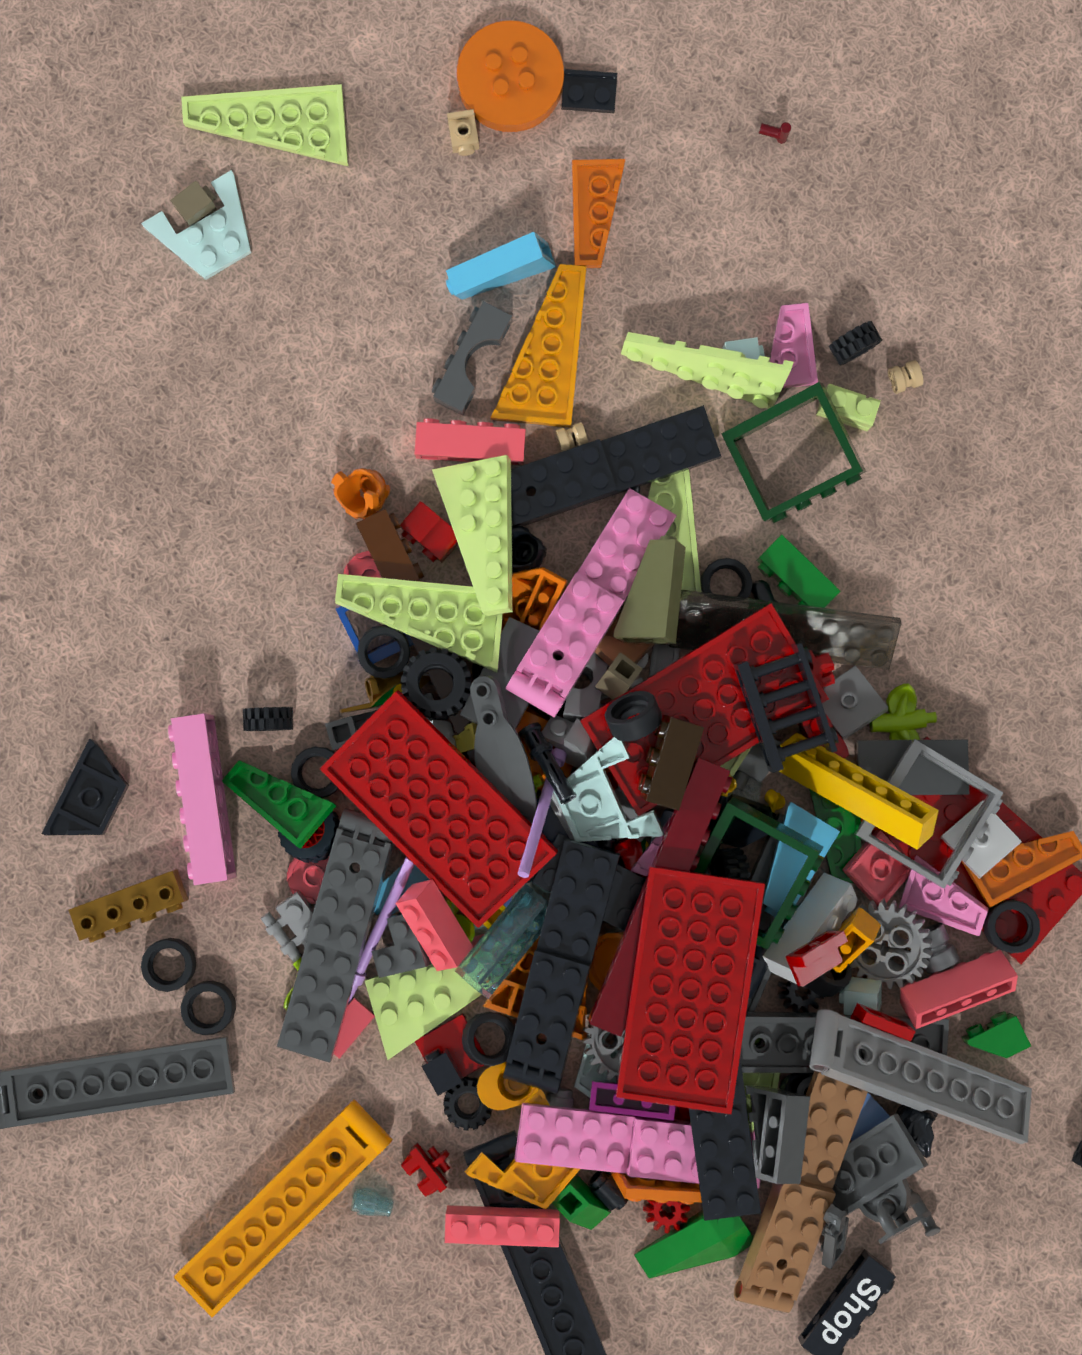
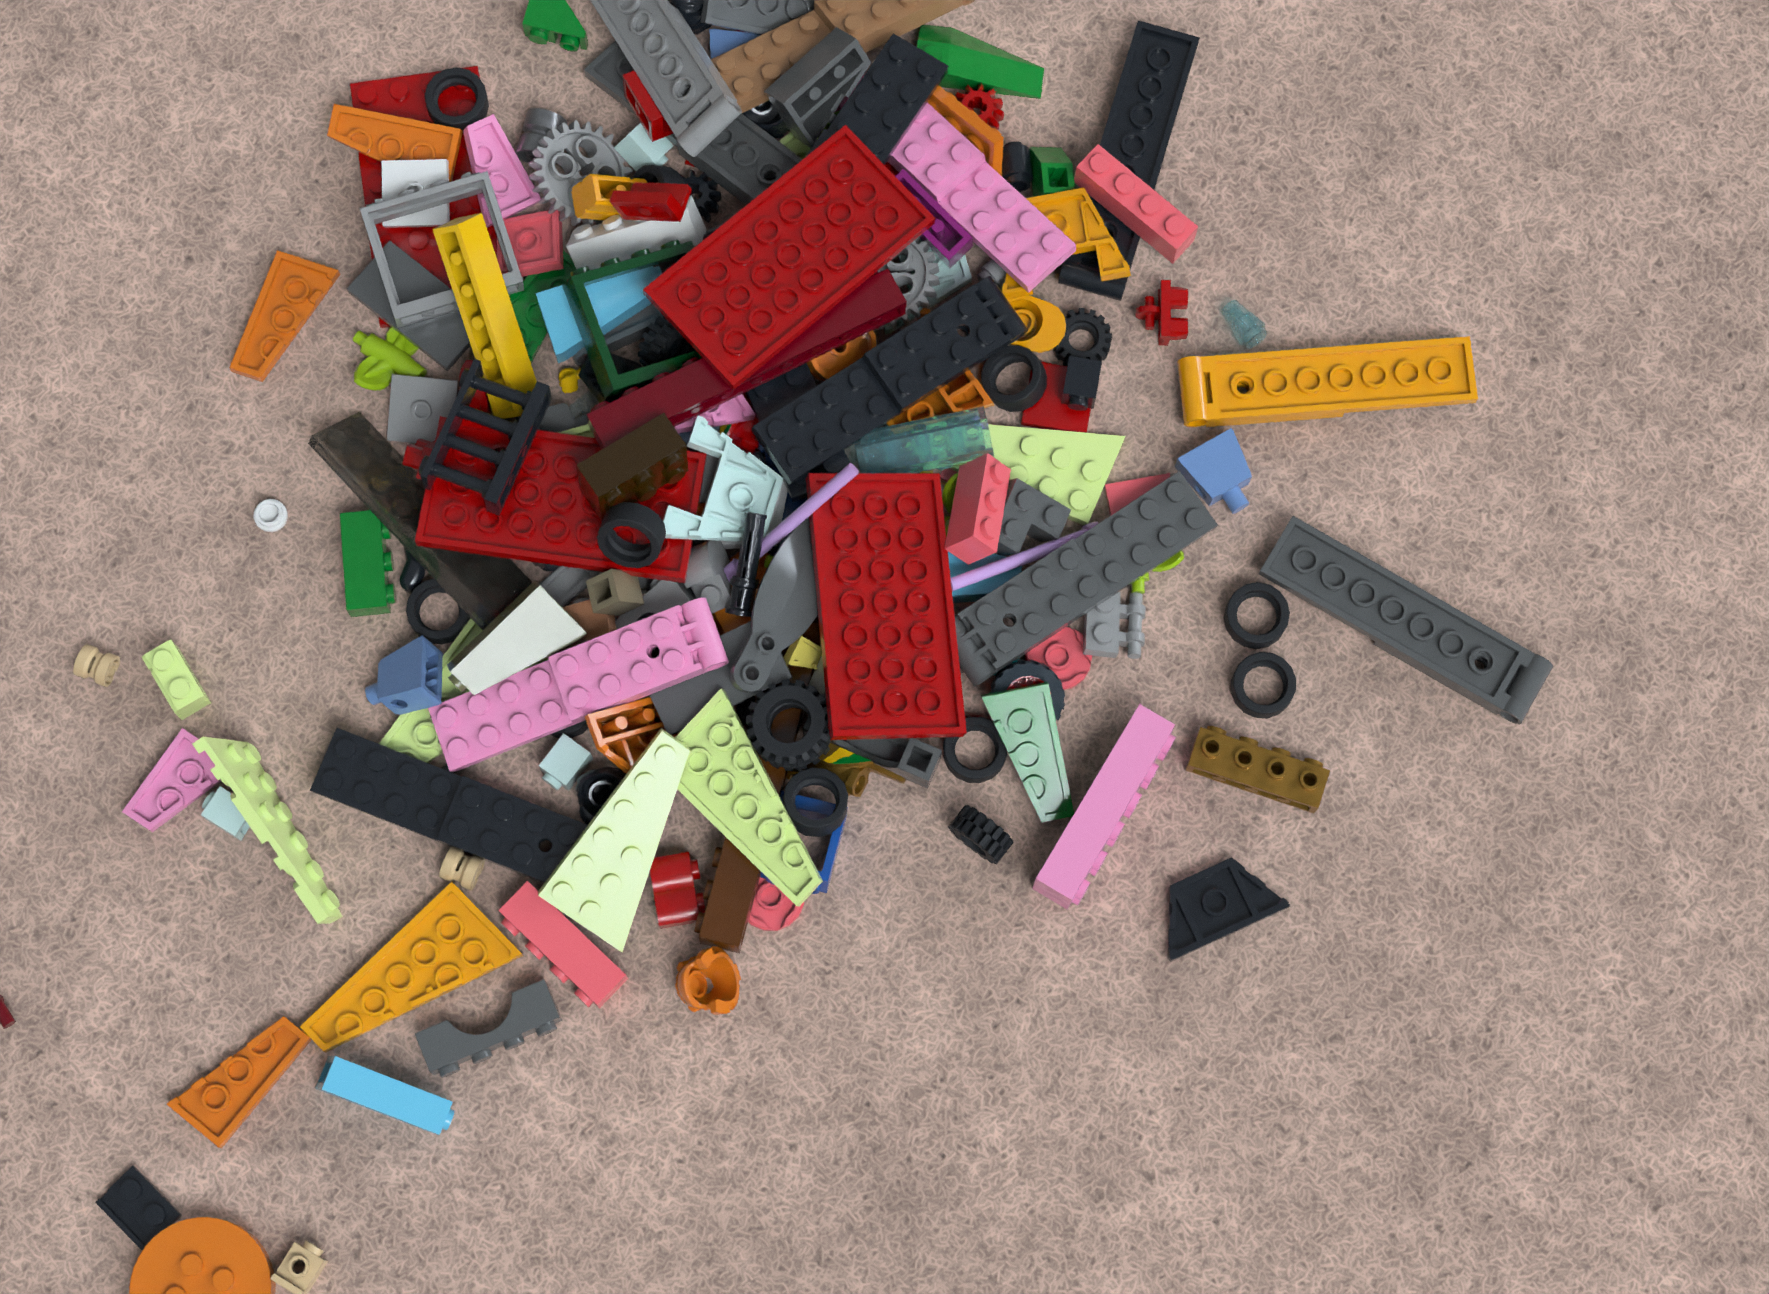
camera: 140 degrees left, 10 degrees down
(307, 1085) = (1217, 471): none -> medium blue torso
(564, 553) = (565, 763): none -> light aqua brick
(704, 524) = (409, 678): none -> medium blue torso
(775, 413) = (248, 725): dark green window -> none
(855, 343) = (114, 732): black tyre -> none
(885, 558) = (270, 515): none -> white plate
(958, 989) = (552, 86): coral brick -> none
(998, 696) = (282, 308): none -> orange wing

